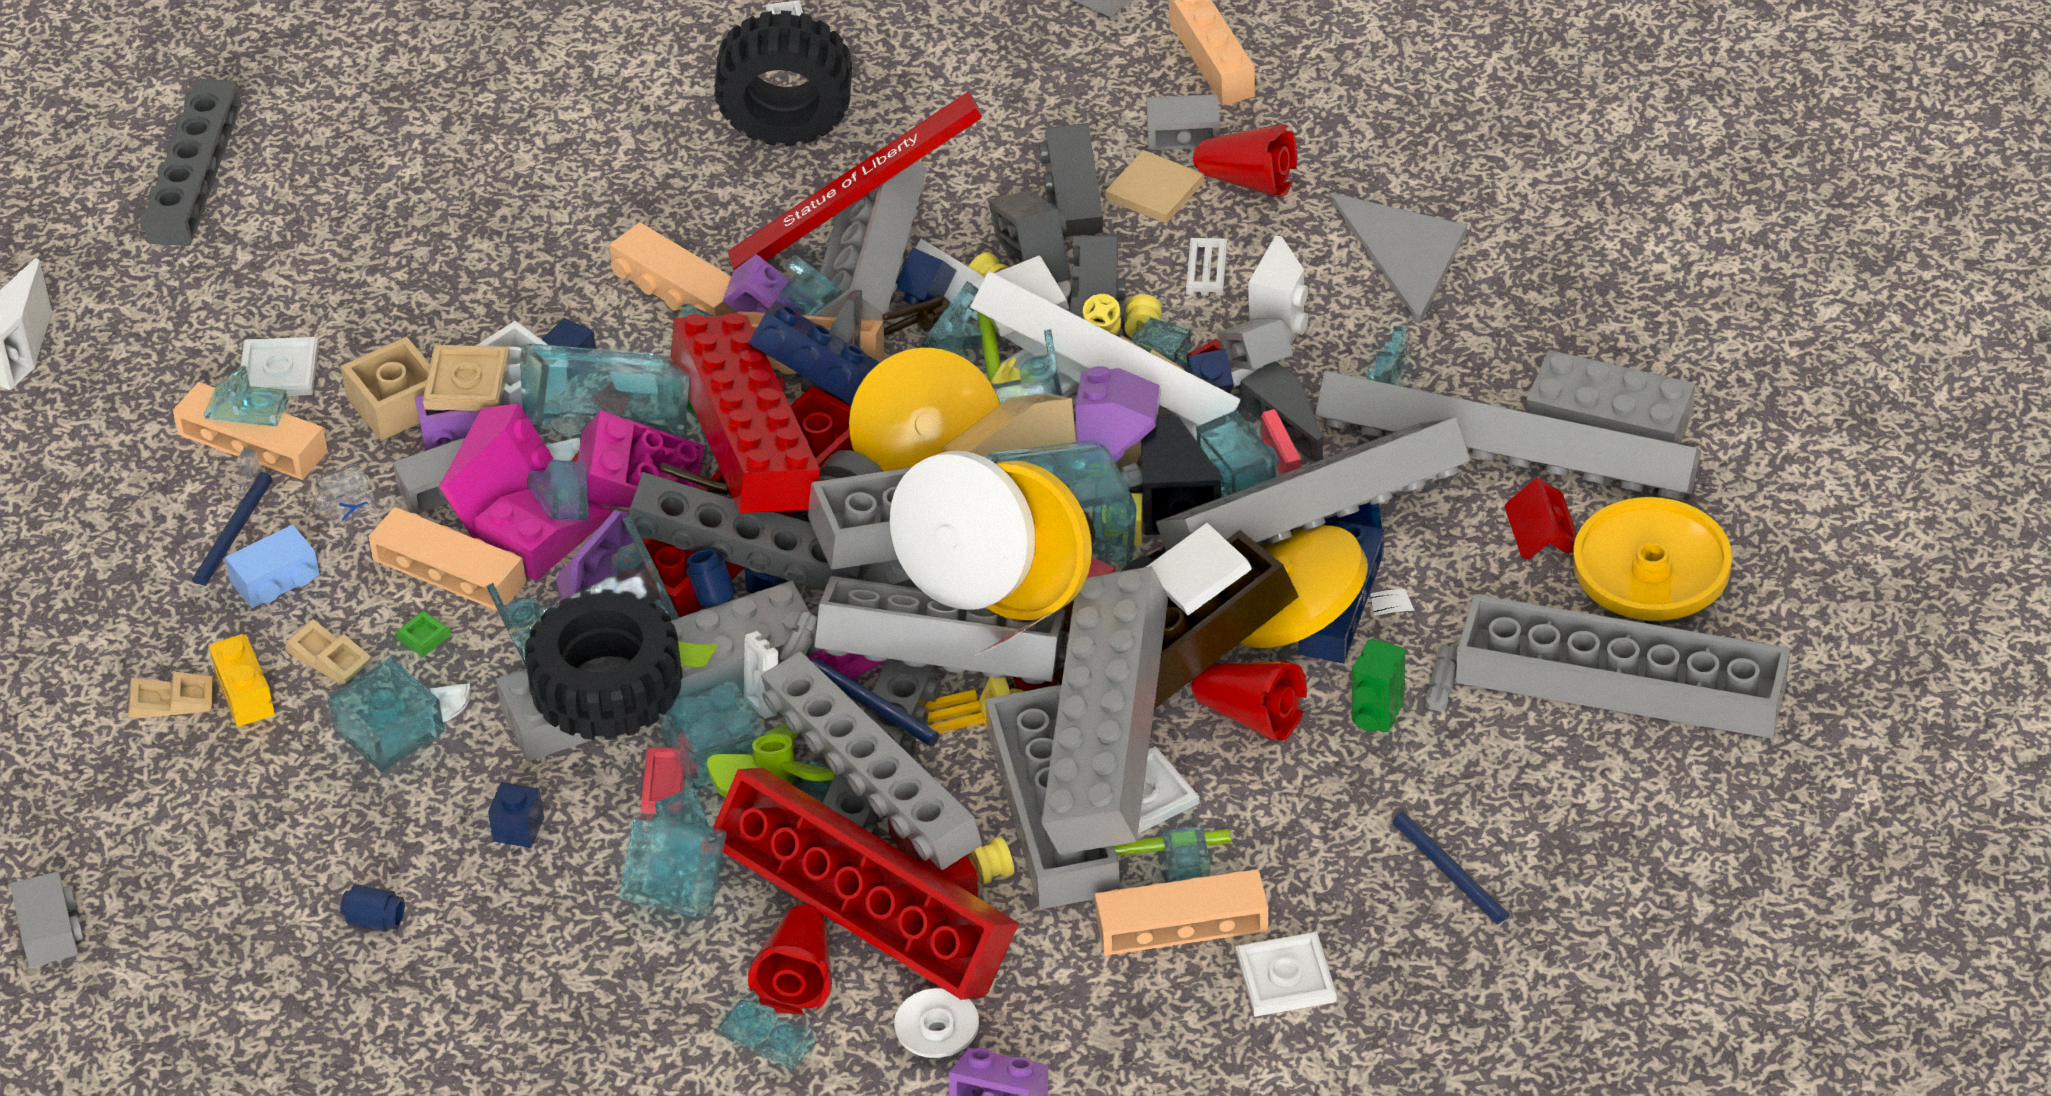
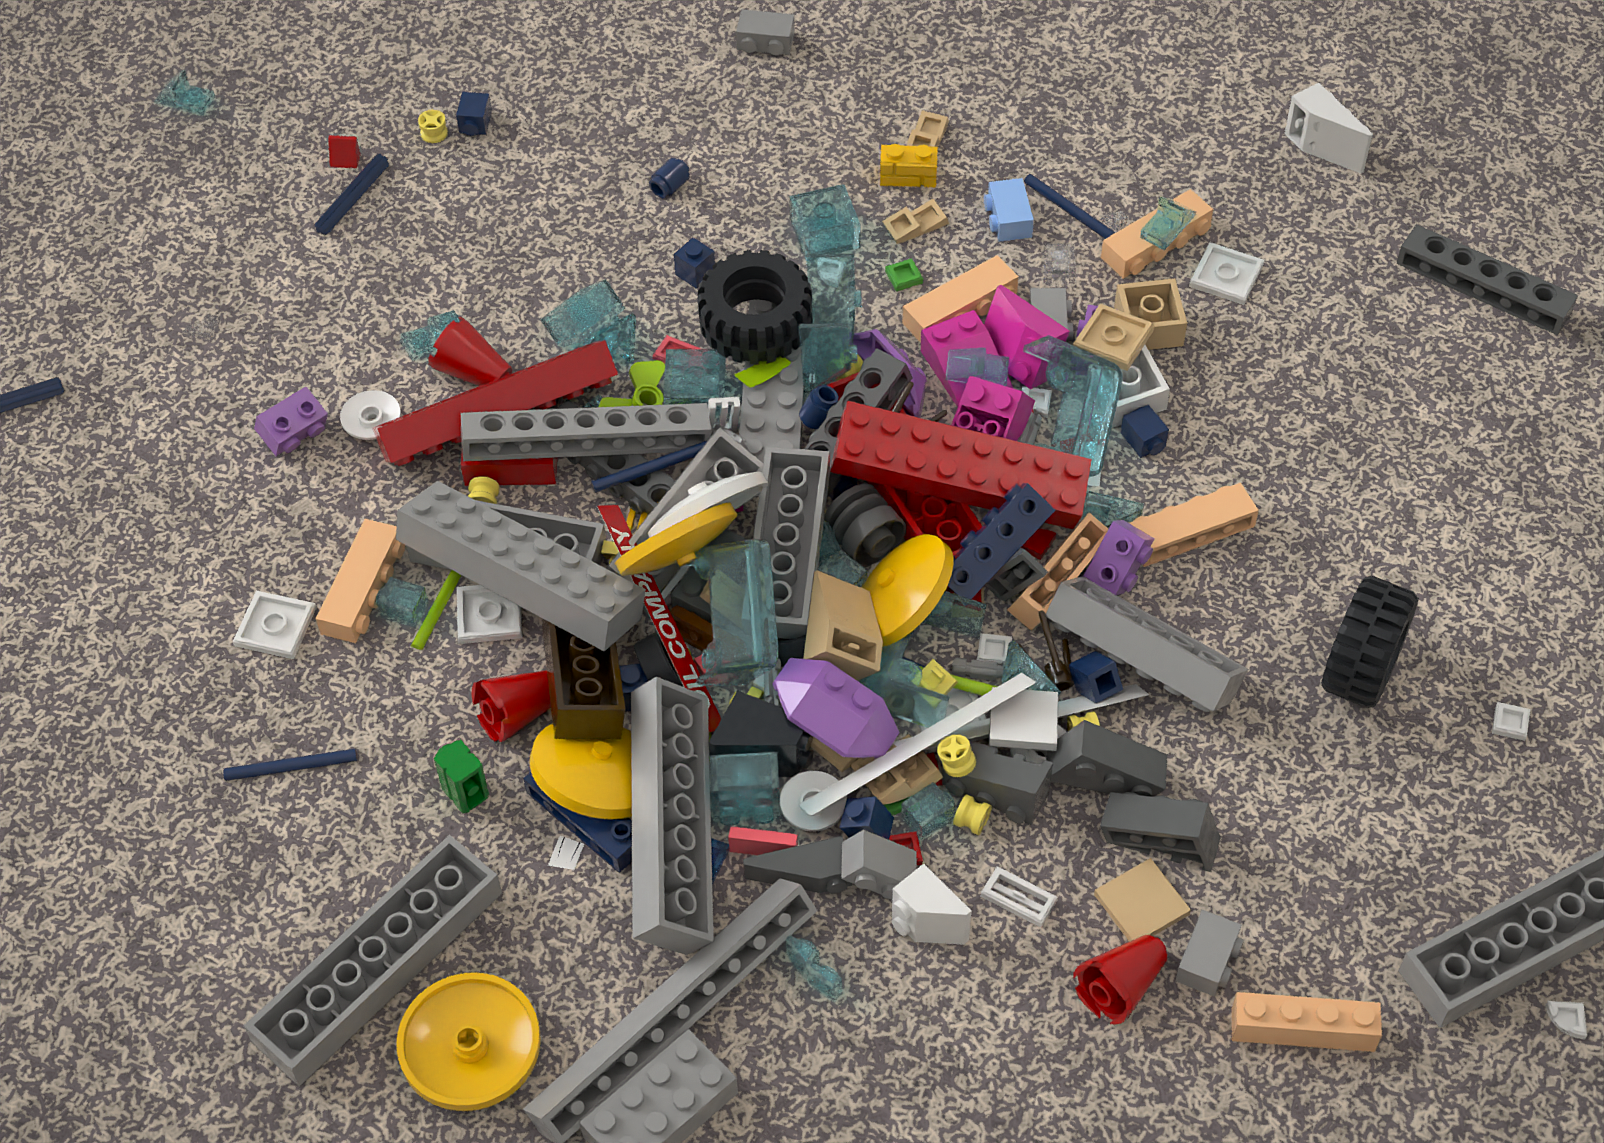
camera: 115 degrees right, 10 degrees up
(807, 288) = (1109, 578): clear light blue slope -> none
(858, 181) = (1198, 640): red tile -> none
(1199, 568) = (606, 668): white tile -> none
(1405, 246) = (958, 1063): light grey tile -> none
(1442, 678) = (447, 828): light grey axle -> none
(1539, 518) = (572, 997): red panel -> none

